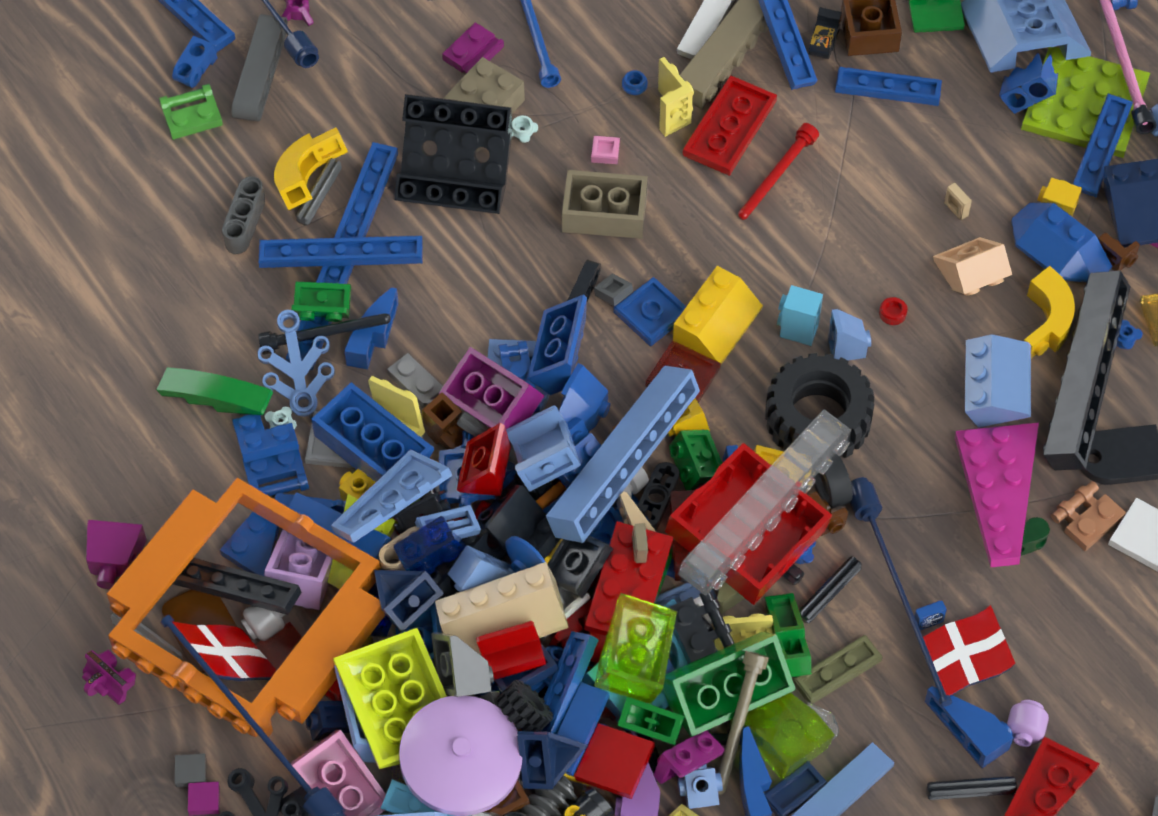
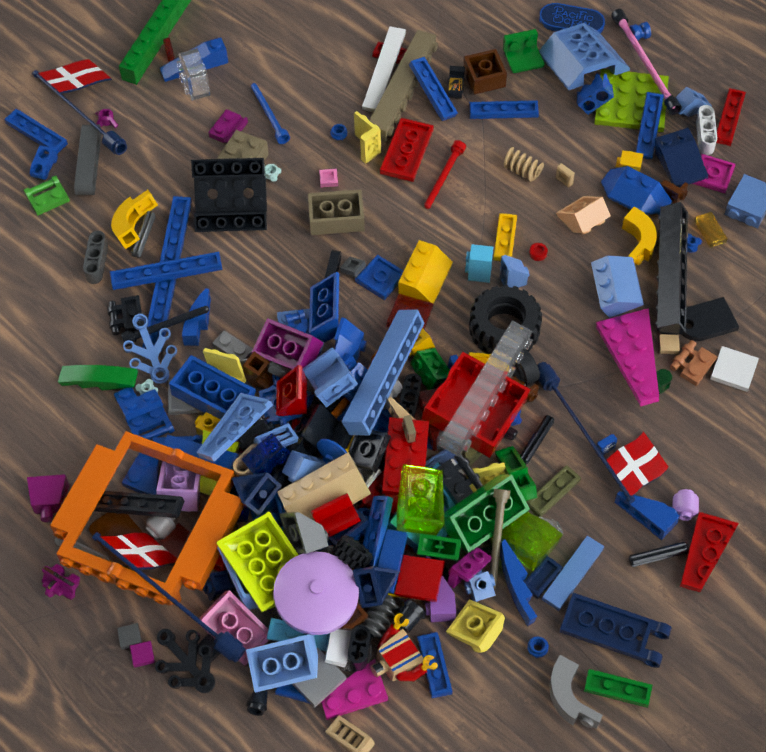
camera: 10 degrees left, 0 degrees up
(278, 298) = (129, 307): none -> black plate
(322, 300) = (160, 304): green bracket -> none
(849, 279) = (505, 236): none -> yellow tile
(897, 177) = (521, 165): none -> tan piece
(1058, 482) = (669, 344): none -> tan tile

